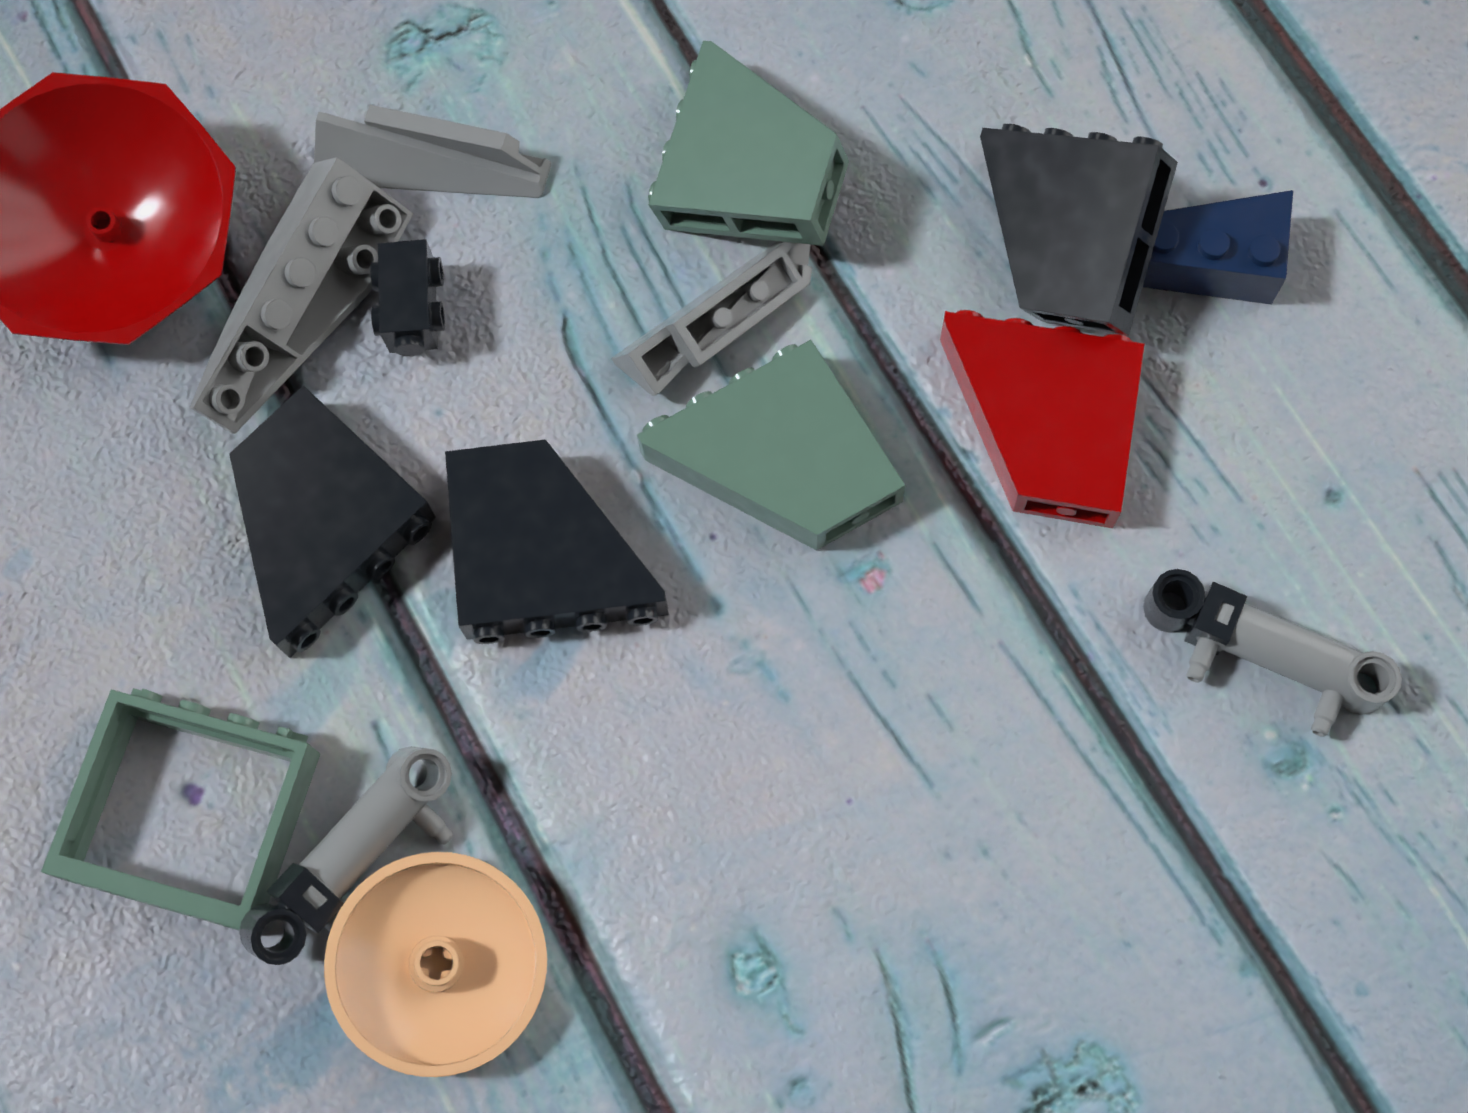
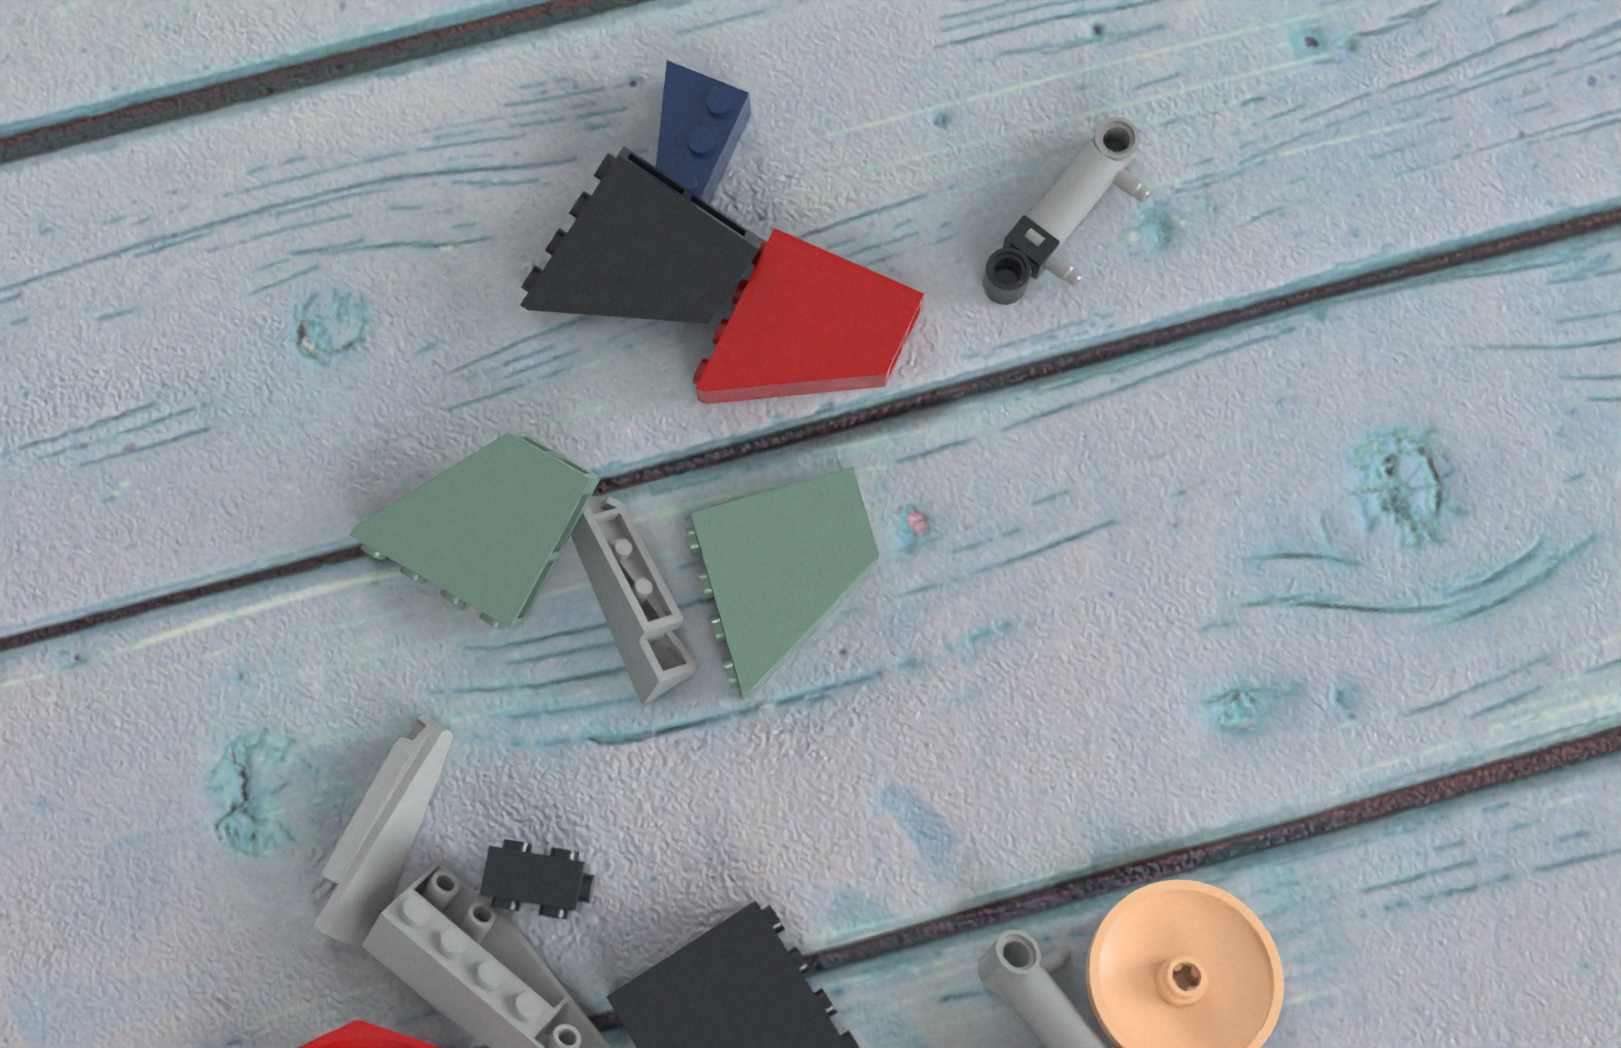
camera: 80 degrees left, 5 degrees up
(537, 549) = (819, 810): black slope -> none

